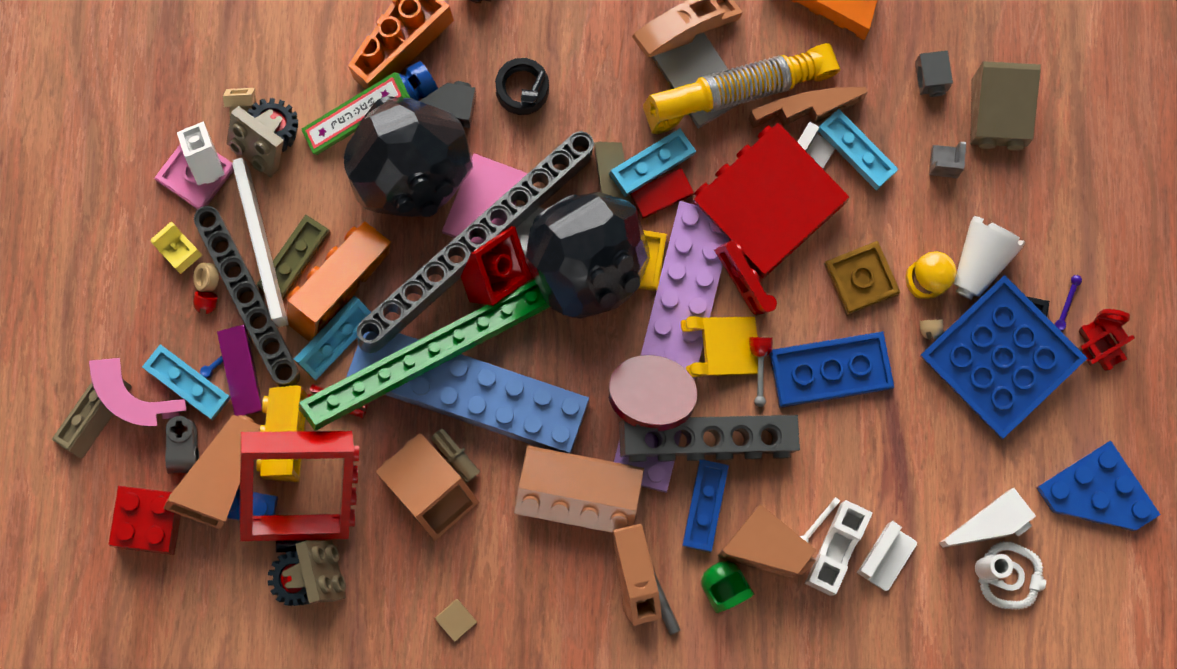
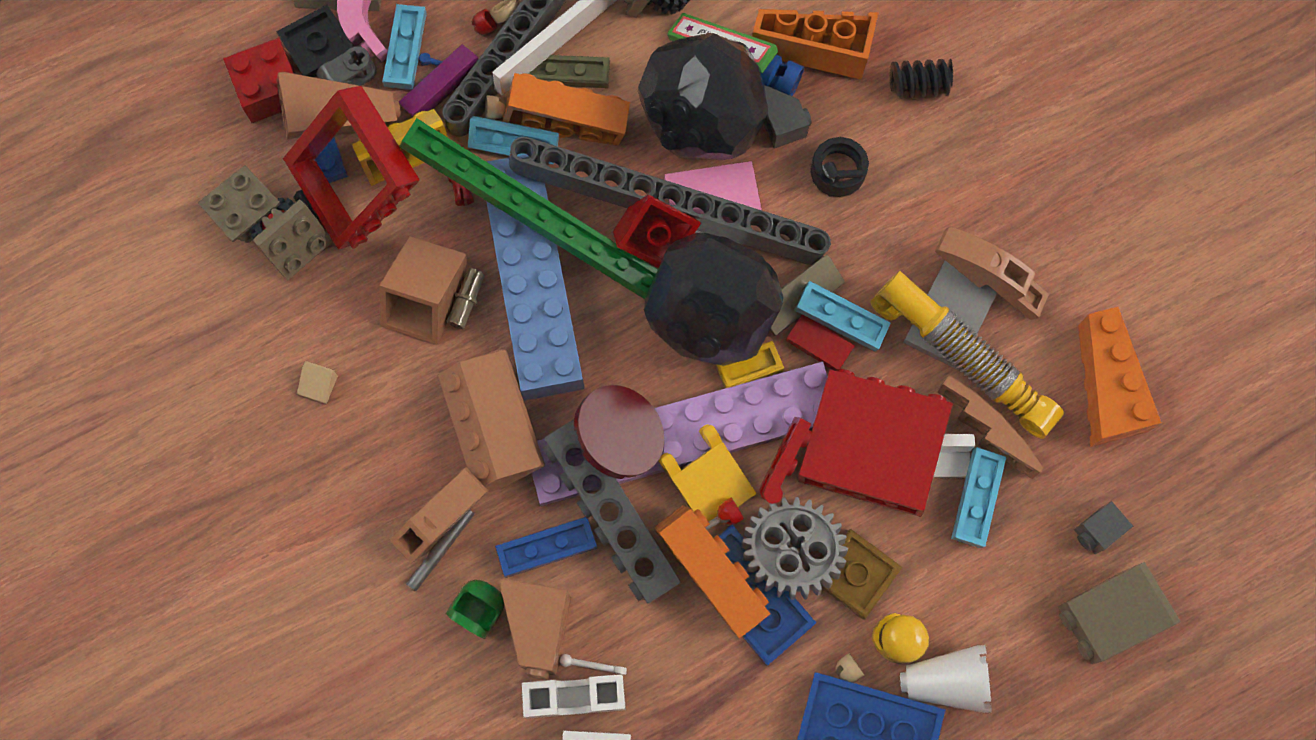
camera: 65 degrees right, 5 degrees down
(134, 457) = (314, 40): none -> black plate
(256, 601) = (239, 204): none -> dark tan hinge
(296, 337) = (494, 107): none -> tan hinge
(800, 385) = (712, 570): none -> orange wedge
(820, 287) = (768, 557): none -> light grey gear
(947, 160) = (1025, 590): flat silver panel -> none

